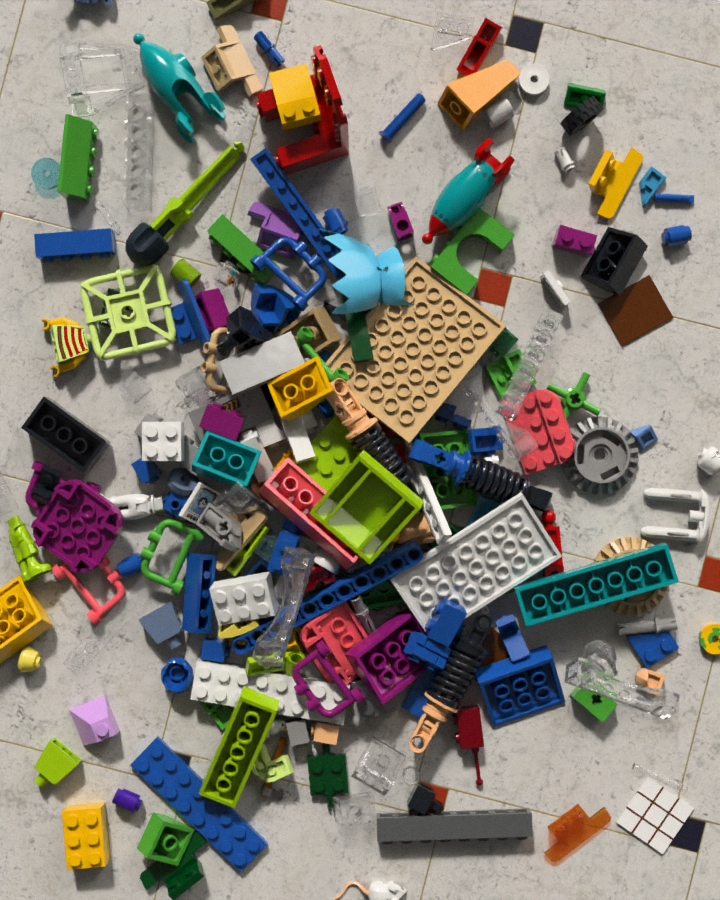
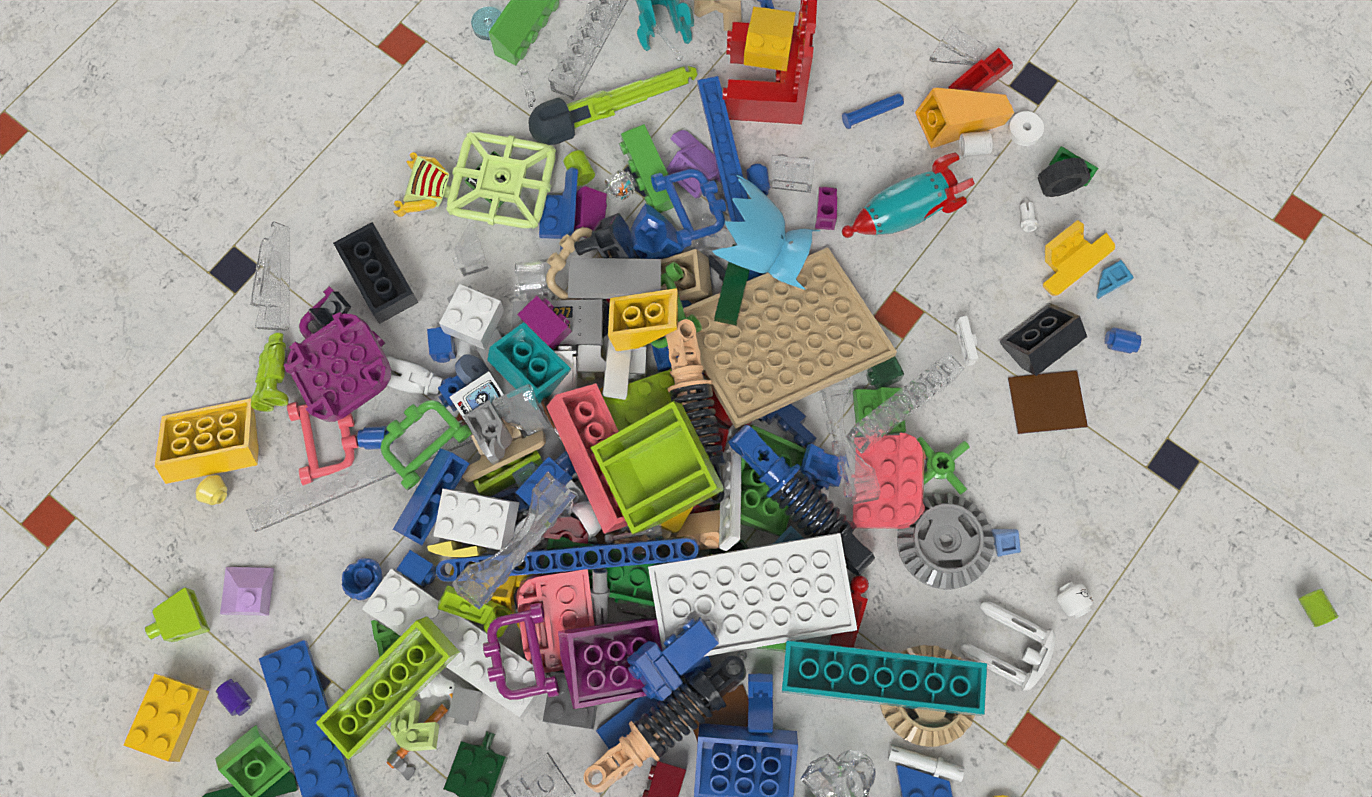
camera: 25 degrees right, 15 degrees down
(75, 244) = (481, 96): blue brick -> none
(163, 624) = (376, 515): sand blue torso -> none
(325, 732) = (496, 719): light nougat brick -> none
(479, 226) = (908, 244): bright green arch -> none
(574, 241) = (1006, 300): magenta piece -> none
(674, 198) = (1136, 303): blue wheel -> none

